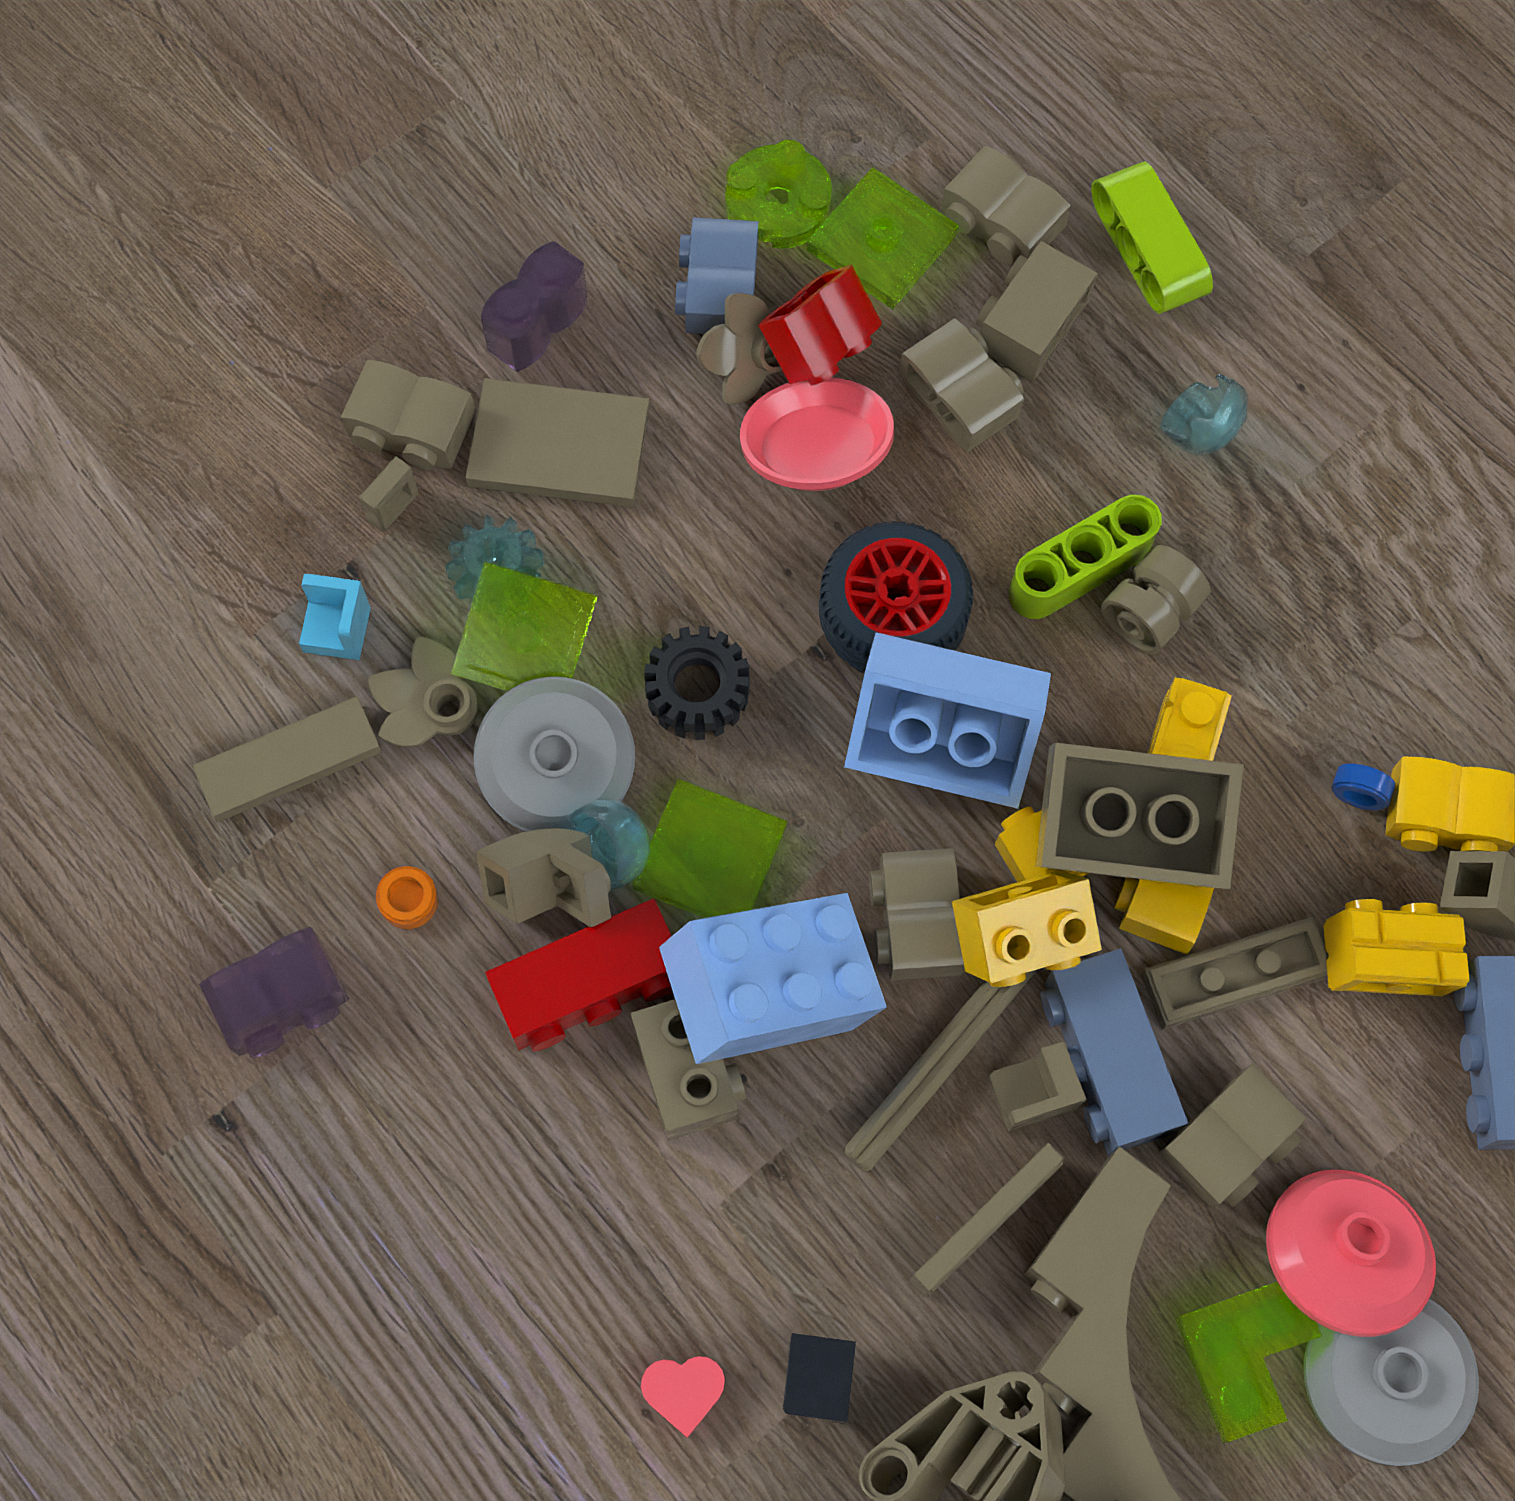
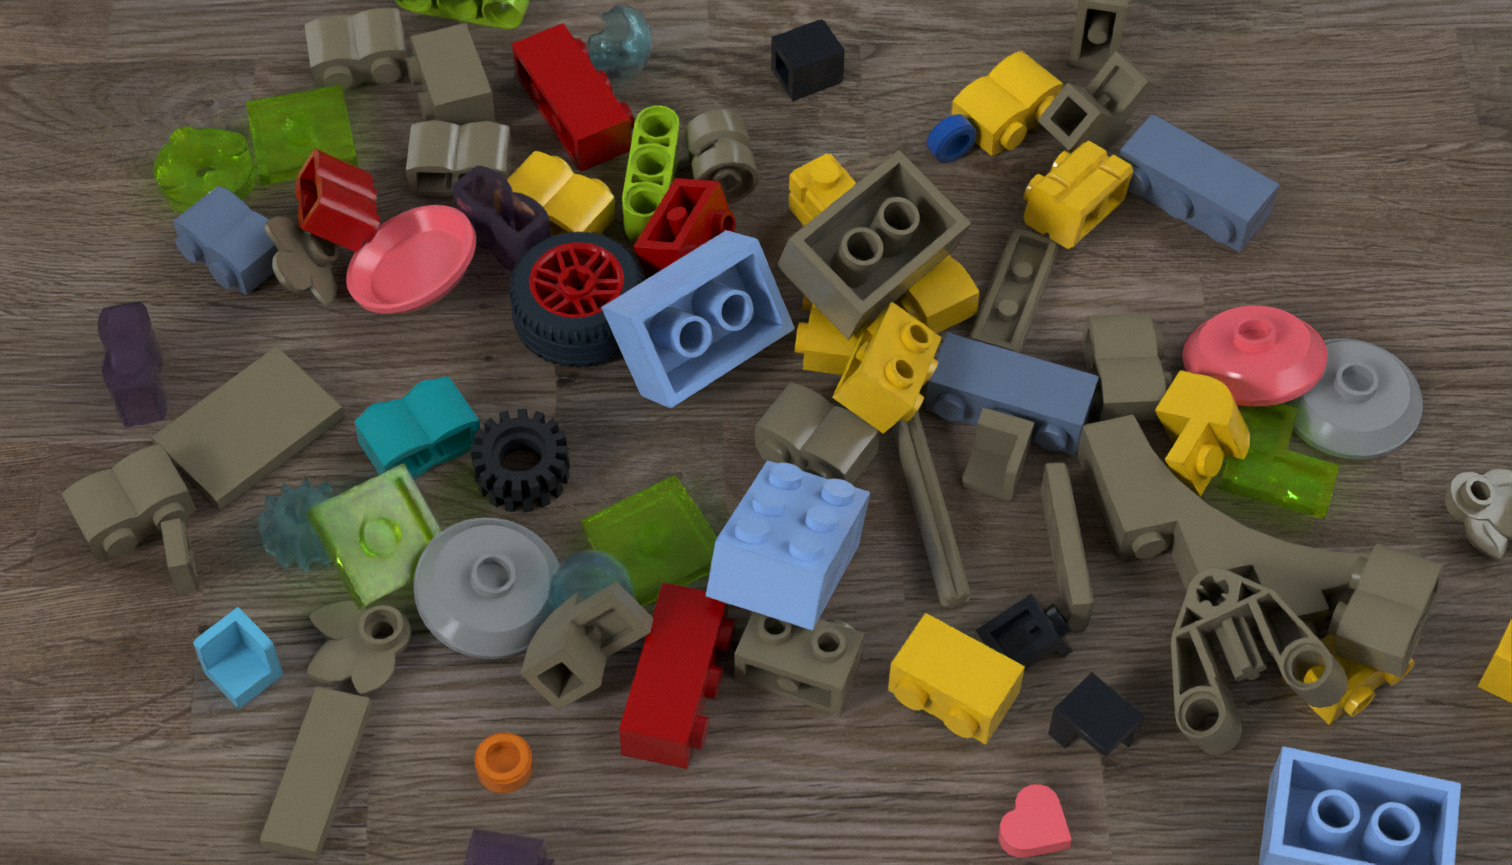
camera: 50 degrees left, 15 degrees down
(656, 576) = (420, 429): none -> teal brick
(761, 1220) = (955, 679): none -> yellow brick
(864, 1251) = (1027, 632): none -> black bracket
(919, 467) = (501, 218): none -> clear purple brick
(987, 501) = (568, 198): none -> yellow brick
(1041, 631) = (683, 221): none -> red brick
(1115, 421) = (573, 96): none -> red brick
(1223, 1267) = (1202, 426): none -> yellow brick
(1340, 589) = (807, 59): none -> black panel

